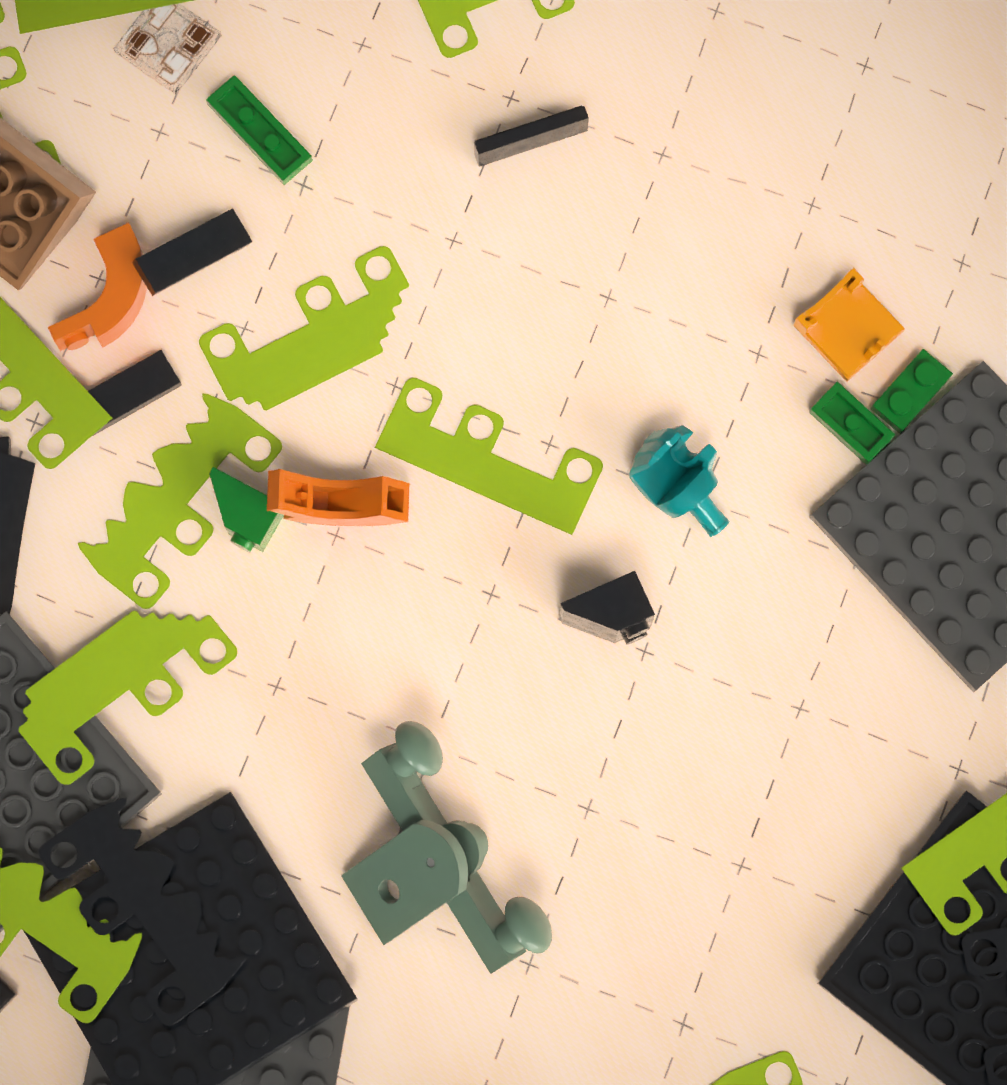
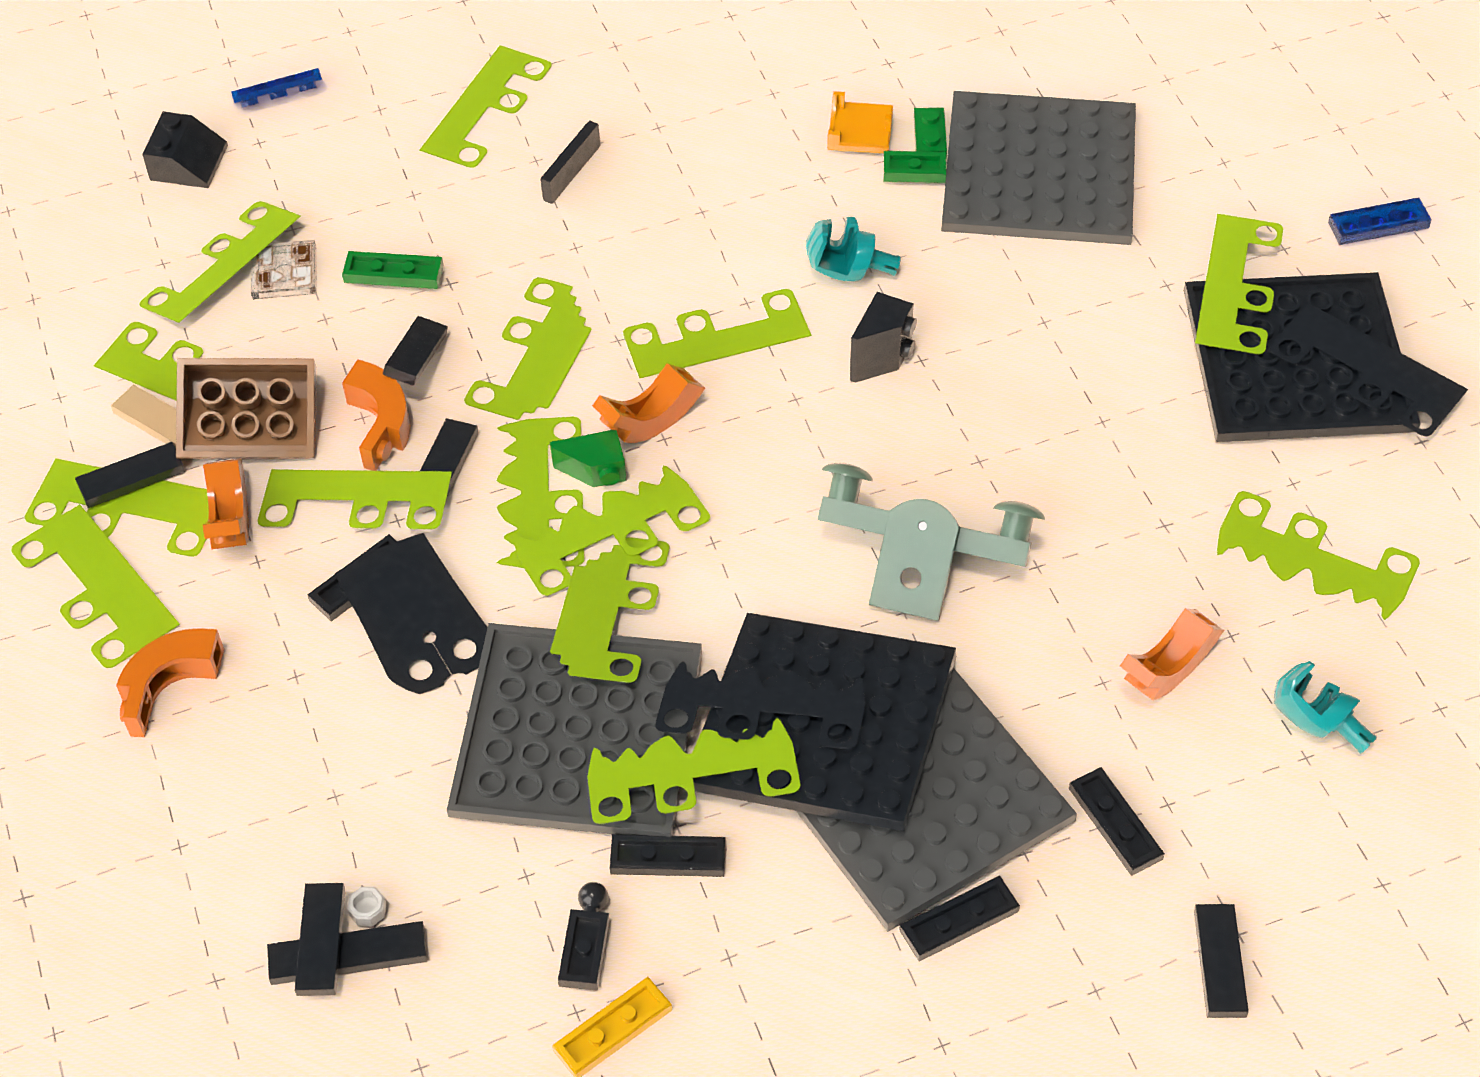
camera: 40 degrees left, 25 degrees down
(222, 591) = (620, 516): none -> lime piece

